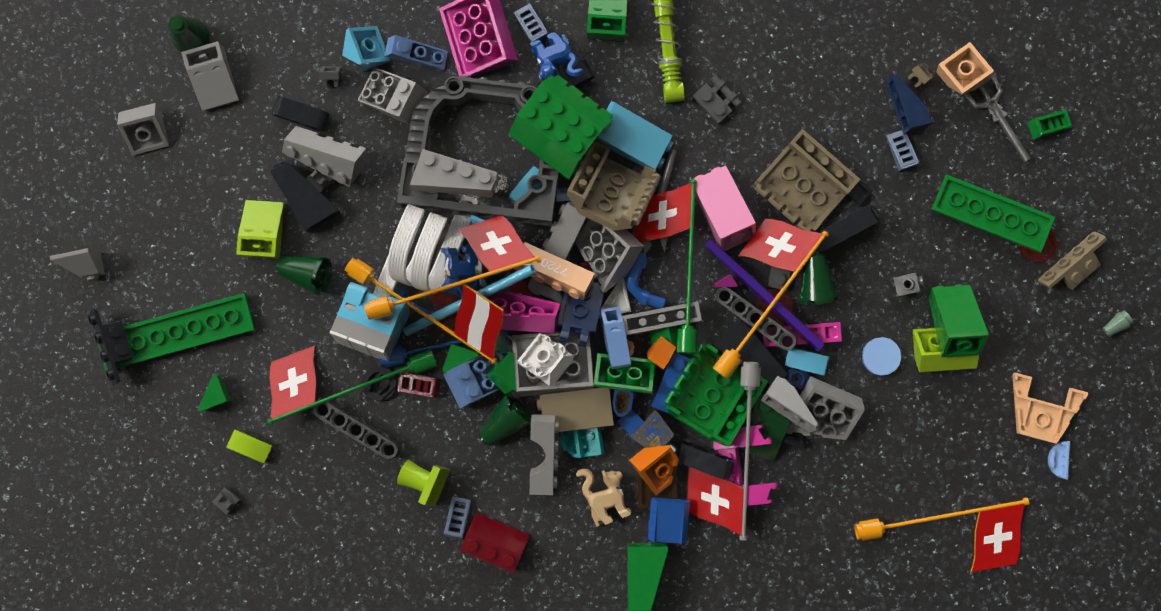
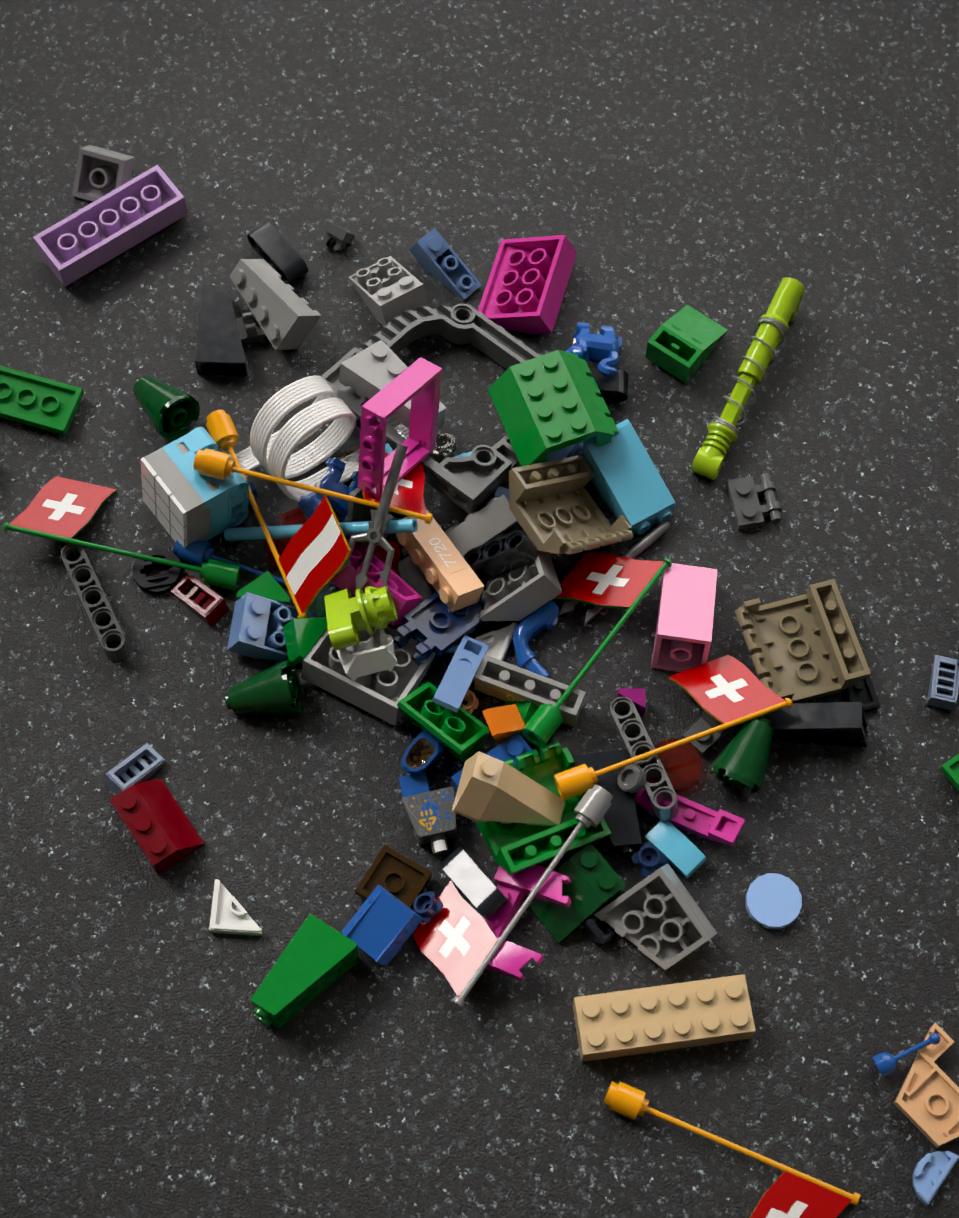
camera: 30 degrees right, 20 degrees down
(177, 164) = (110, 225): none -> lavender brick
(187, 33) = (218, 113): dark green cone -> none
(210, 75) = (211, 163): light grey slope -> none
(261, 230) = (146, 339): lime slope -> none
(365, 47) = (394, 228): medium azure slope -> none
(422, 480) = (130, 705): lime plant -> none
(484, 214) = (422, 385): none -> dark pink window
(509, 281) = (377, 526): none -> flat silver piece
(527, 348) = (350, 615): none -> lime beam
(540, 35) = (595, 323): sand blue slope -> none
(543, 432) = (303, 725): light grey arch -> none
(573, 567) = (229, 915): none -> white tile
(578, 408) = (360, 730): dark tan panel -> none
(582, 442) = (346, 769): teal slope -> none
(591, 246) = (501, 555): none -> black beam
(604, 499) = (323, 855): tan animal -> none
(655, 466) = (409, 849): orange slope -> none
(683, 486) = (427, 906): none -> dark blue plate
(692, 403) = (502, 794): none -> tan wedge
(759, 340) = (631, 778): none -> dark grey tile
(764, 295) = (669, 735): dark purple tile -> none
(787, 401) = (619, 868): light grey slope -> none
(862, 469) = (663, 1017): none -> tan brick
(903, 286) = (860, 833): dark grey brick -> none
(929, 357) = (860, 940): lime slope -> none
(957, 321) = (893, 907): green slope -> none
(1001, 413) = (887, 1063): none -> blue hinge

